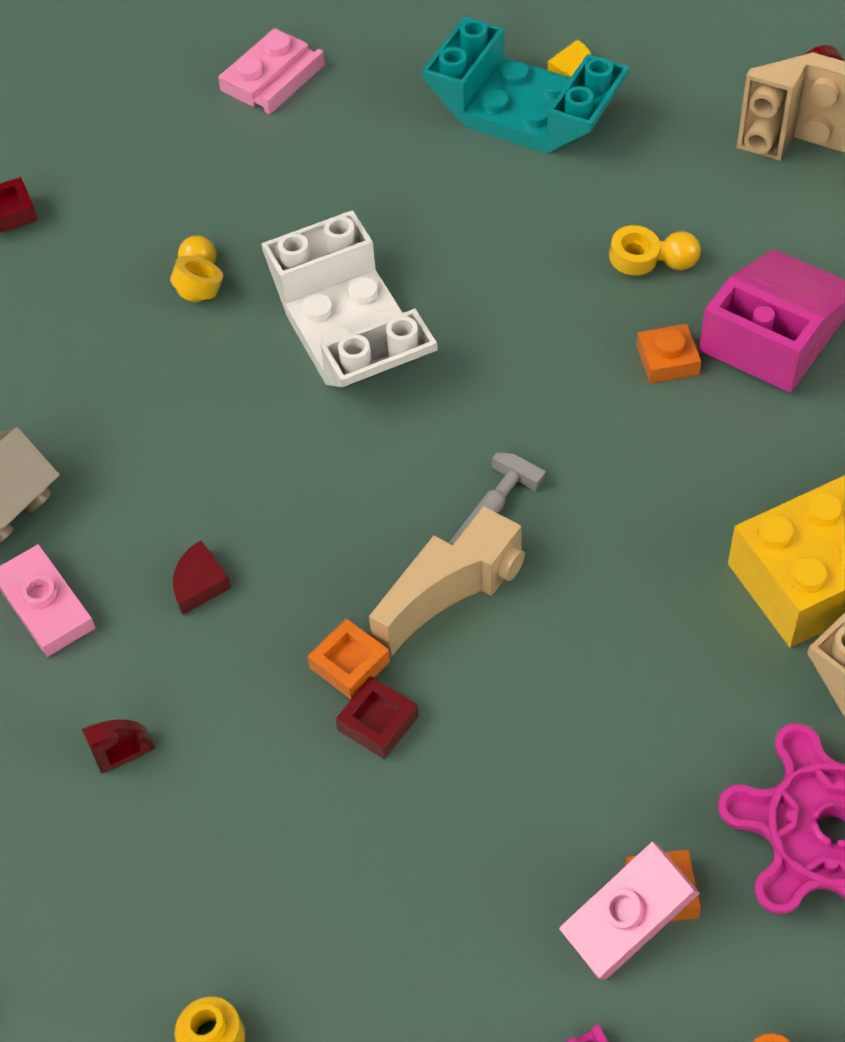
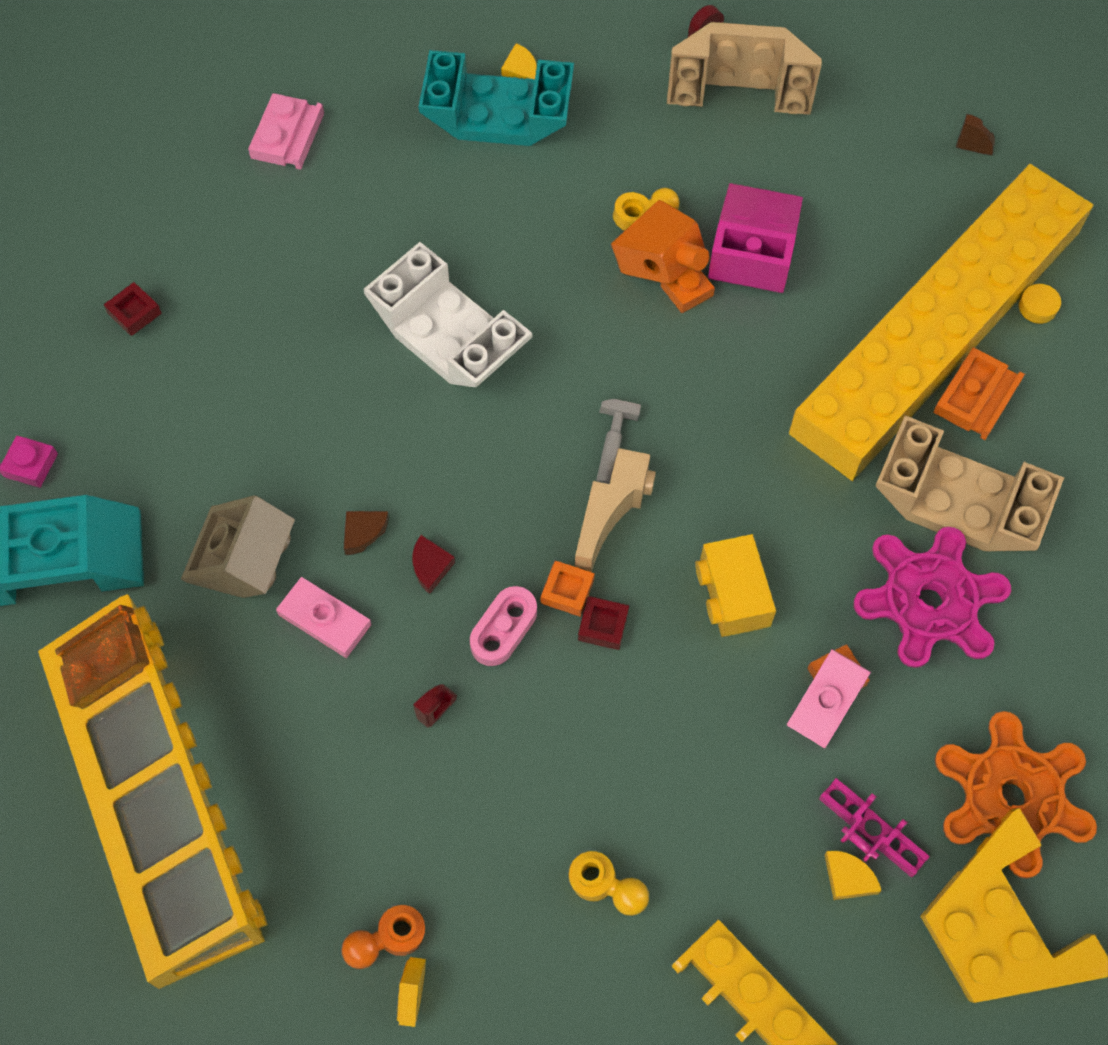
camera: 25 degrees left, 10 degrees up
(137, 514) = (363, 529): none -> reddish brown tile
(195, 270) = (313, 325): yellow plate -> none
(245, 678) = (503, 628): none -> bright pink plate
(566, 725) = (736, 586): none -> yellow brick
(648, 292) = (660, 245): none -> orange torso

